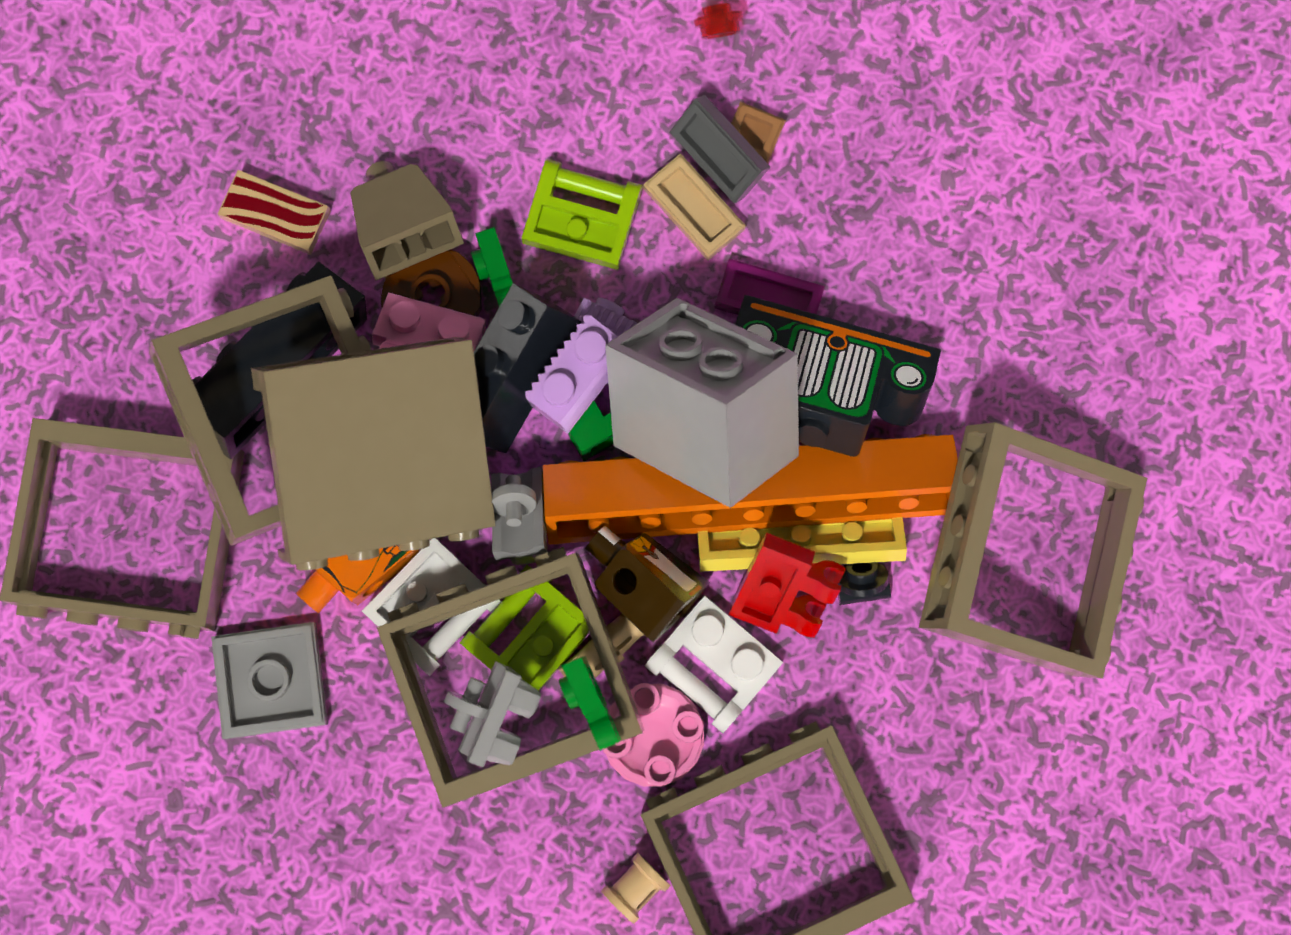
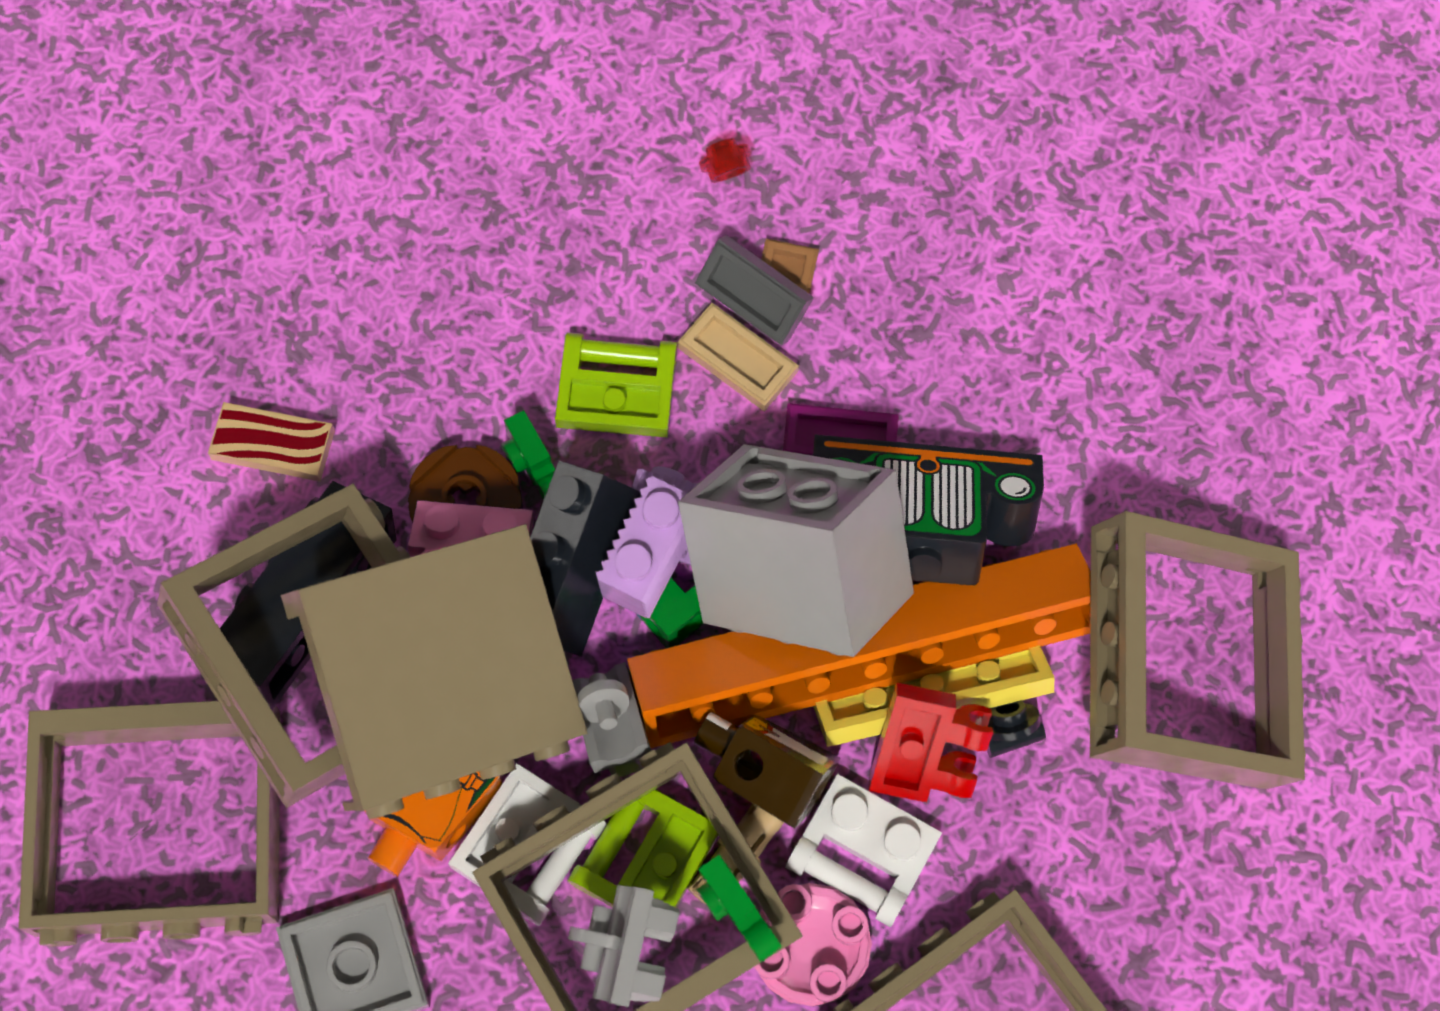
camera: 15 degrees left, 10 degrees down
(401, 218) = (420, 419): dark tan torso -> none

